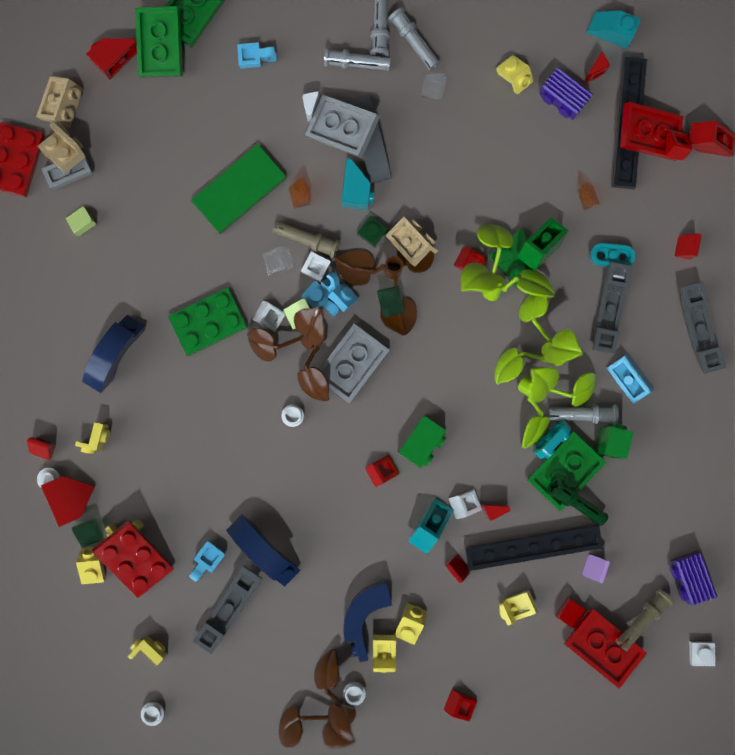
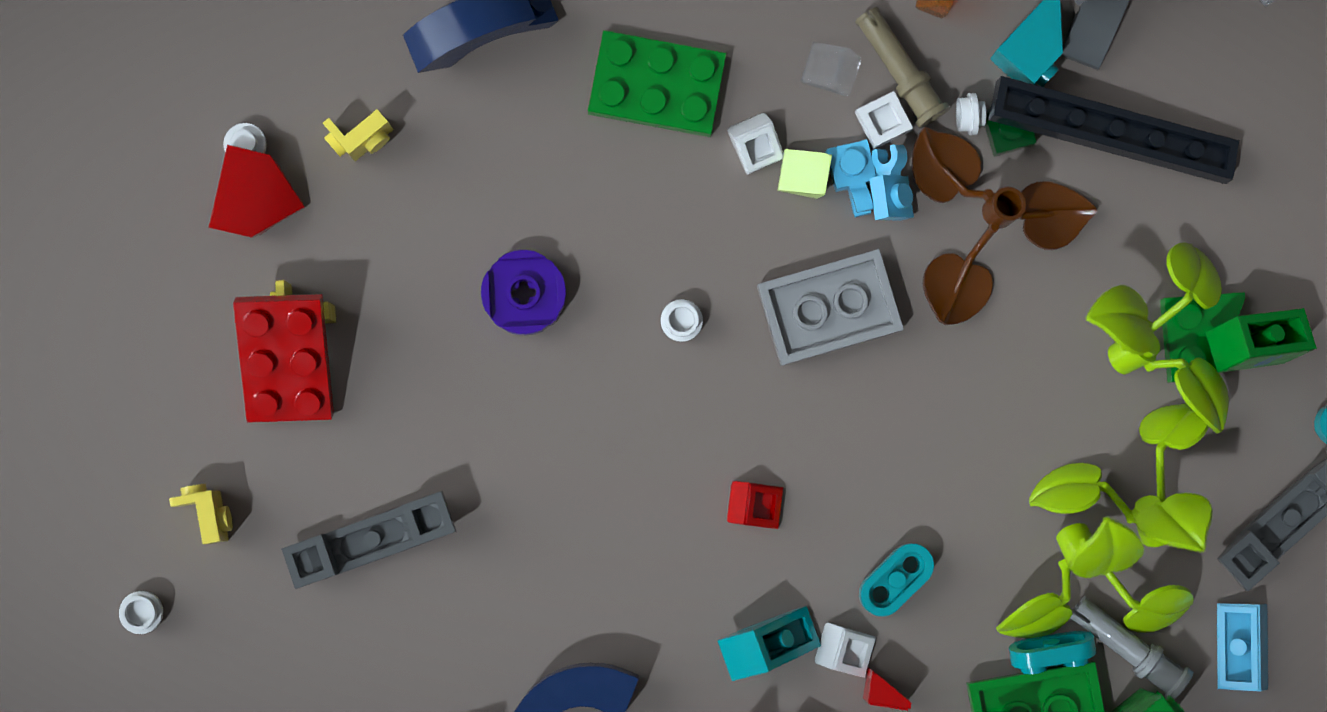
camera: 30 degrees right, 0 degrees up
(40, 447) = (267, 89): red slope -> none
(88, 533) = (244, 269): clear green slope -> none
(90, 567) = (210, 322): light yellow bracket -> none
(203, 453) = (506, 276): none -> dark purple plate
(208, 558) = (395, 441): medium azure plate -> none
(261, 551) = (486, 491): dark blue arch -> none
(311, 326) = (815, 204): reddish brown plant -> none
(350, 237) = (970, 114): none -> white plate
(391, 301) = (961, 256): clear green slope -> none
(411, 241) = (1058, 187): tan bracket -> none
(416, 199) = (1113, 130): none -> black plate
(422, 442) = (850, 507): green brick -> none
(467, 459) = (898, 582): none -> teal plate
(469, 255) = (1129, 273): red slope -> none

